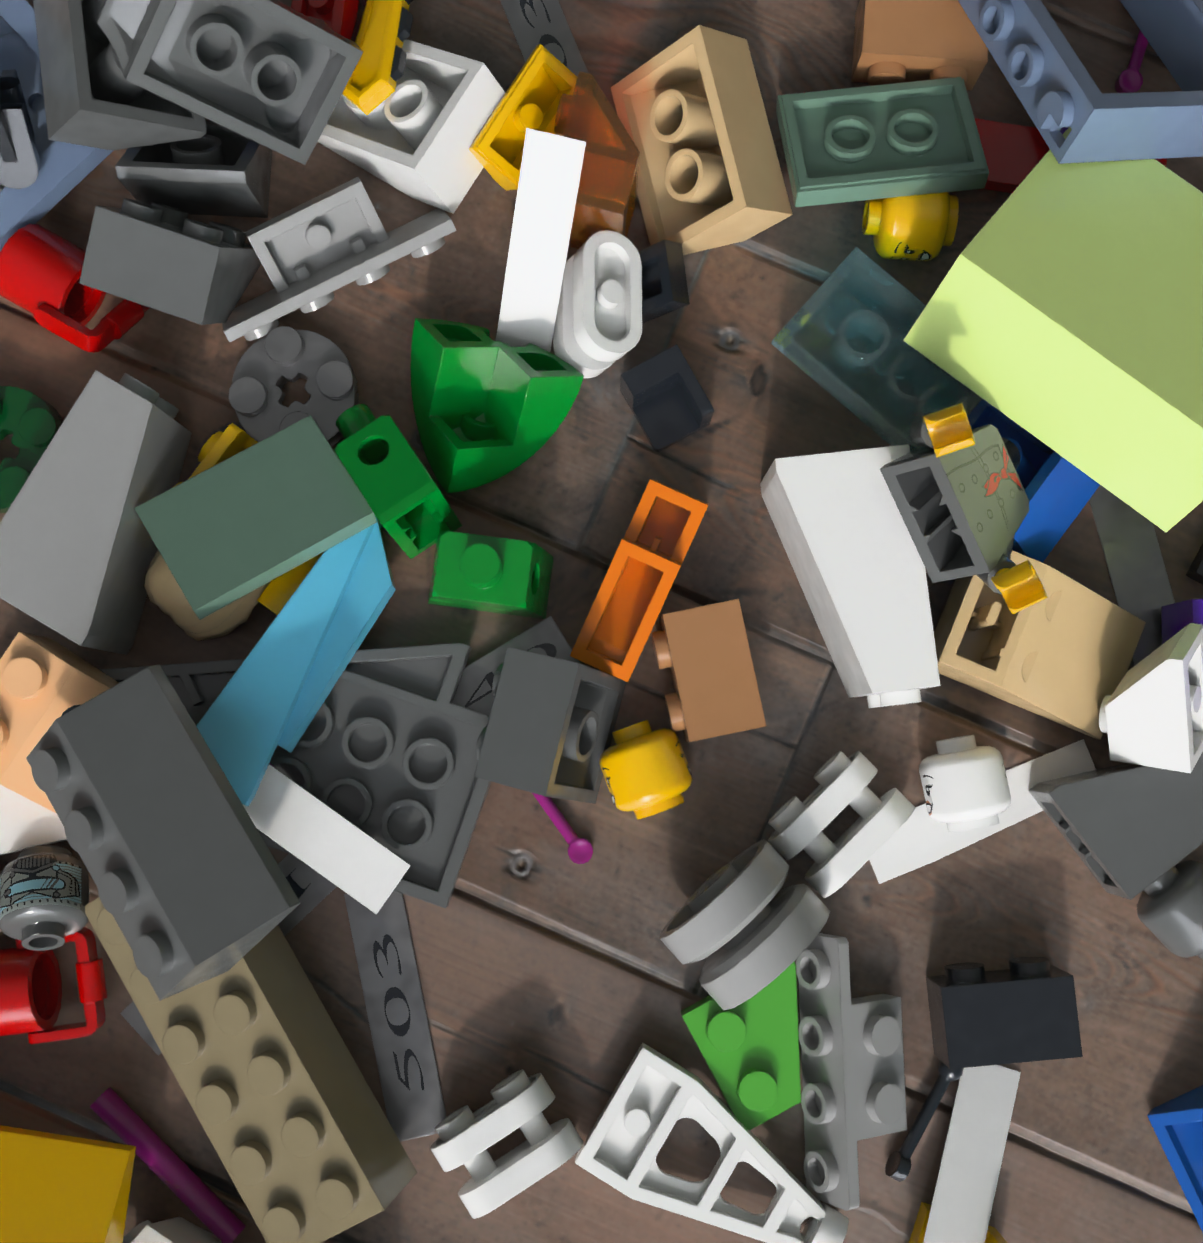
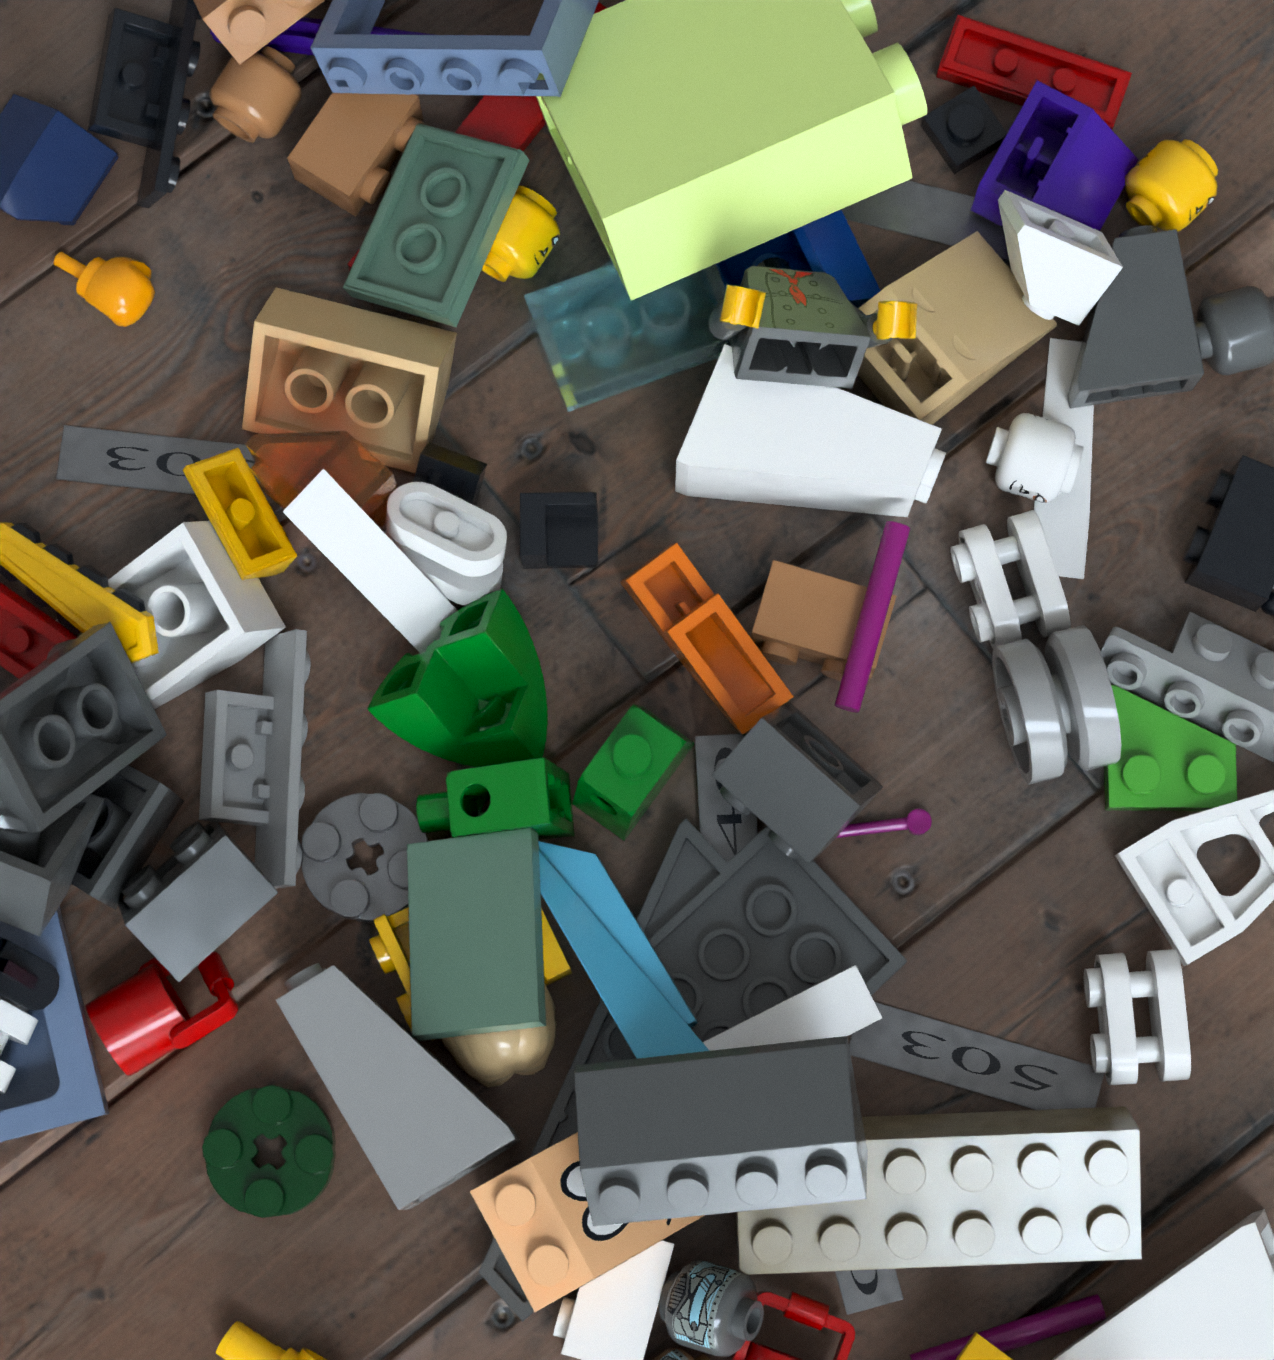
camera: 60 degrees left, 5 degrees down
(645, 770) = (883, 729): yellow head -> none
(734, 714) = (872, 616): none -> magenta bar

